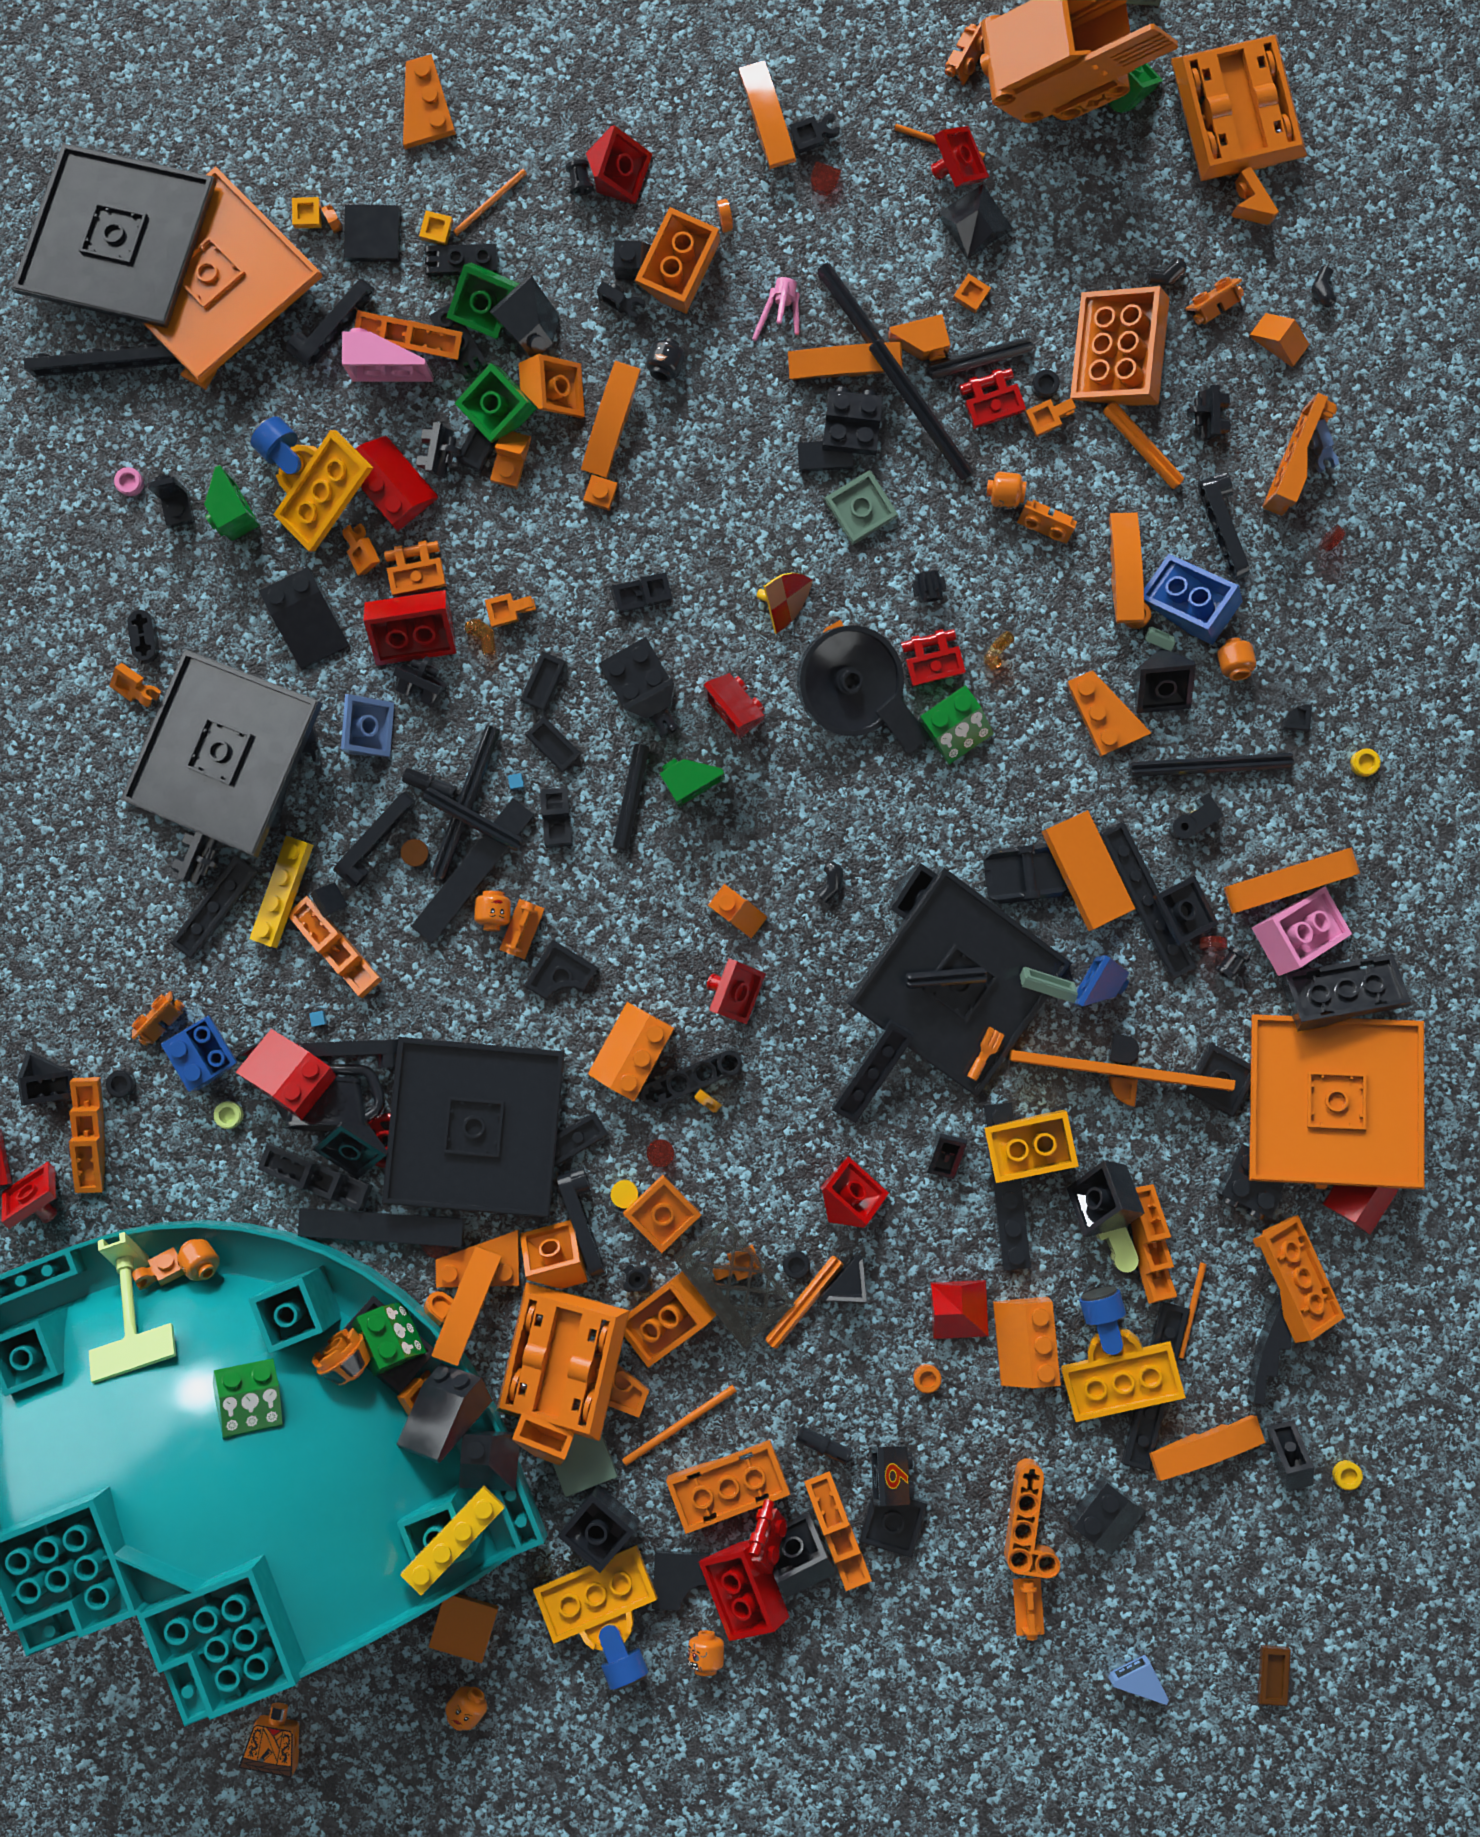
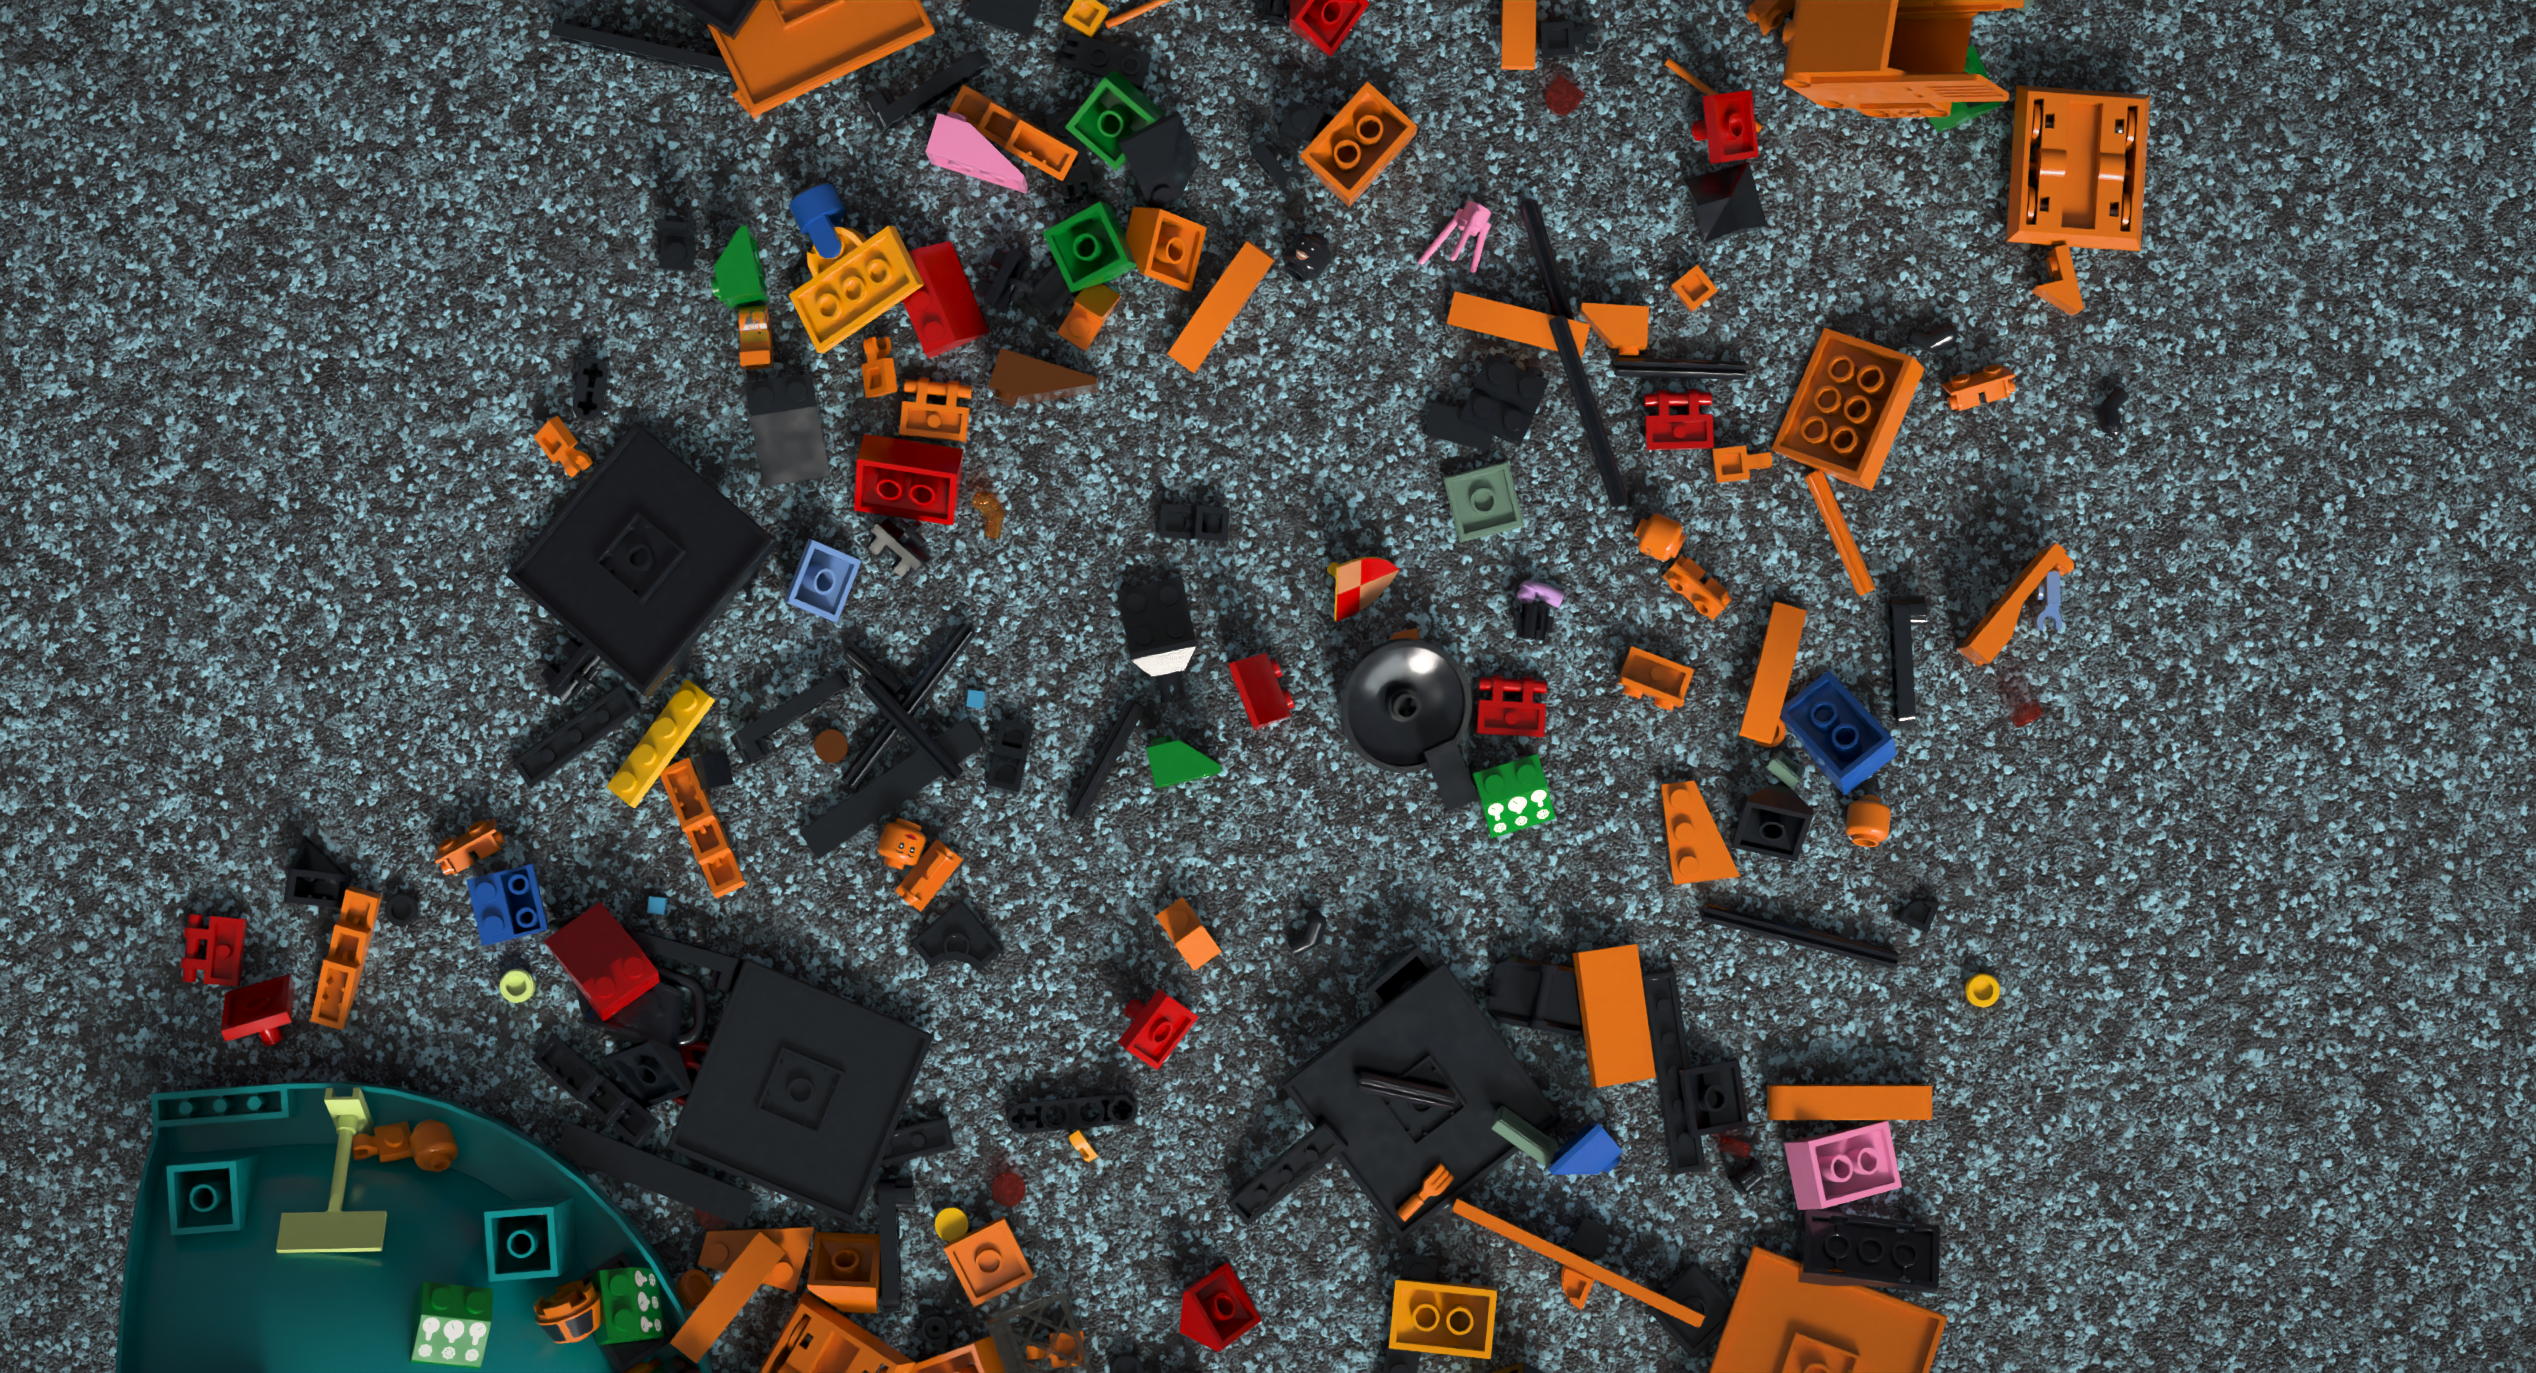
camera: 10 degrees right, 0 degrees up
(129, 481) = (631, 201): bright pink tile -> none
(258, 556) = (755, 338): none -> orange leg
(482, 519) = (1032, 380): none -> reddish brown slope
(504, 609) = (1025, 492): orange plate -> none
(543, 681) = (1044, 591): black tile -> none
(553, 744) = (1033, 669): black tile -> none
(600, 492) = (1182, 388): orange plate -> none
(631, 1051) = (1011, 1059): orange slope -> none
(725, 215) = (1431, 105): orange tile -> none
(922, 562) = (1532, 589): none -> lavender arm
(946, 1154) = (1343, 1296): black slope -> none
(999, 645) = (1590, 719): clear orange arm -> none
(1037, 600) = (1655, 678): none -> orange bracket
(1045, 384) = (1747, 423): black tile -> none
(1189, 825) = (1761, 996): black leg -> none
(1207, 413) = (1926, 519): black hips -> none
(1281, 337) = (2041, 456): orange slope -> none

